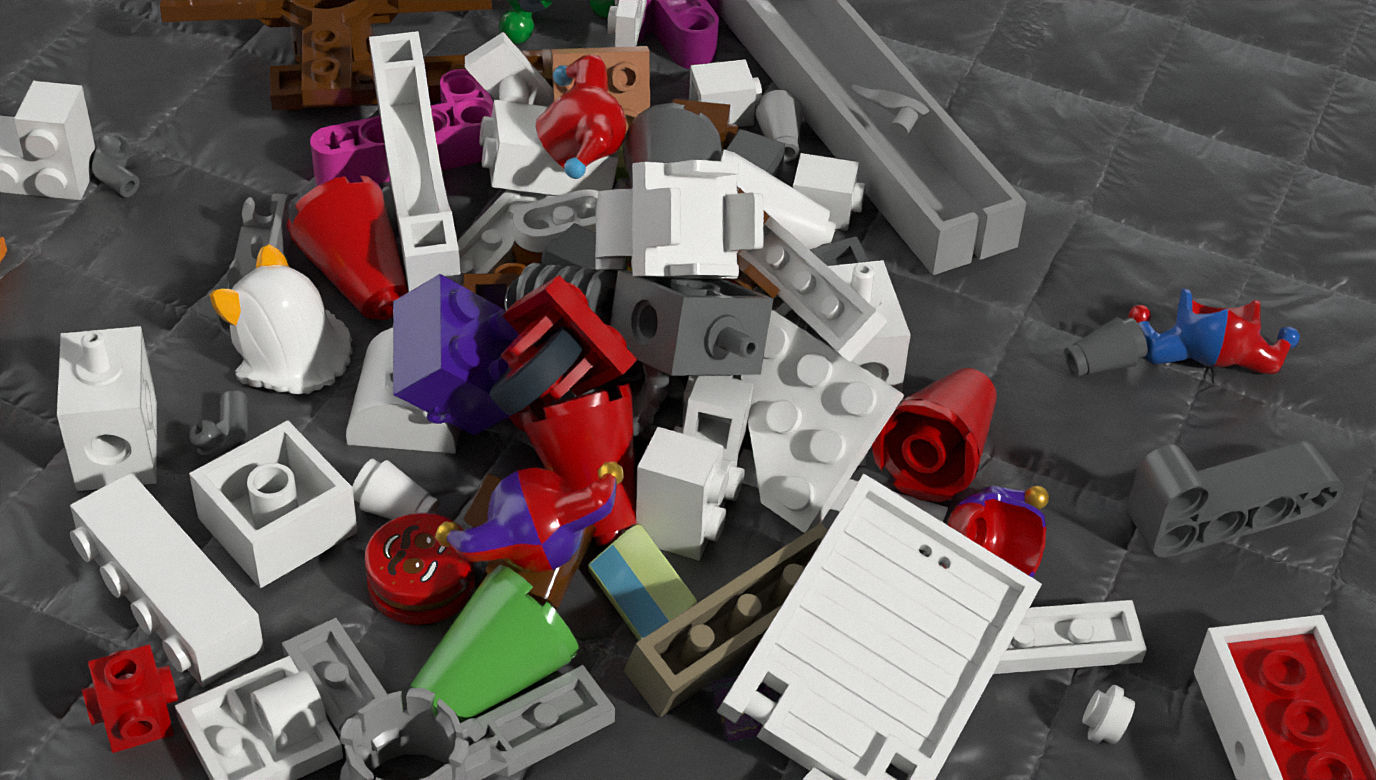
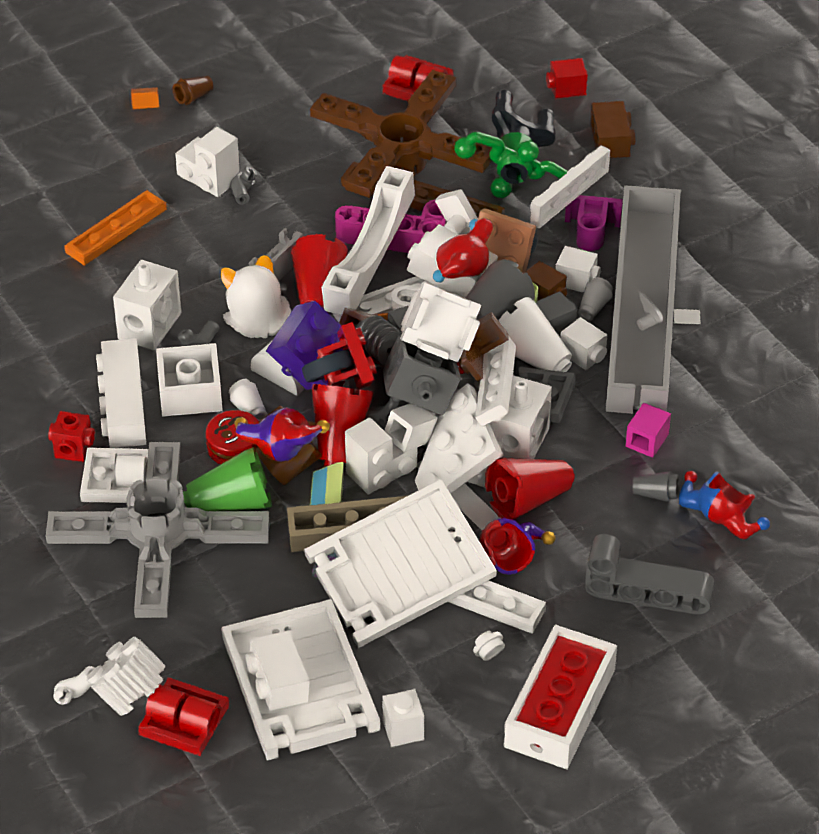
camera: 35 degrees right, 0 degrees up
(1022, 274) = (648, 430): none -> dark pink brick

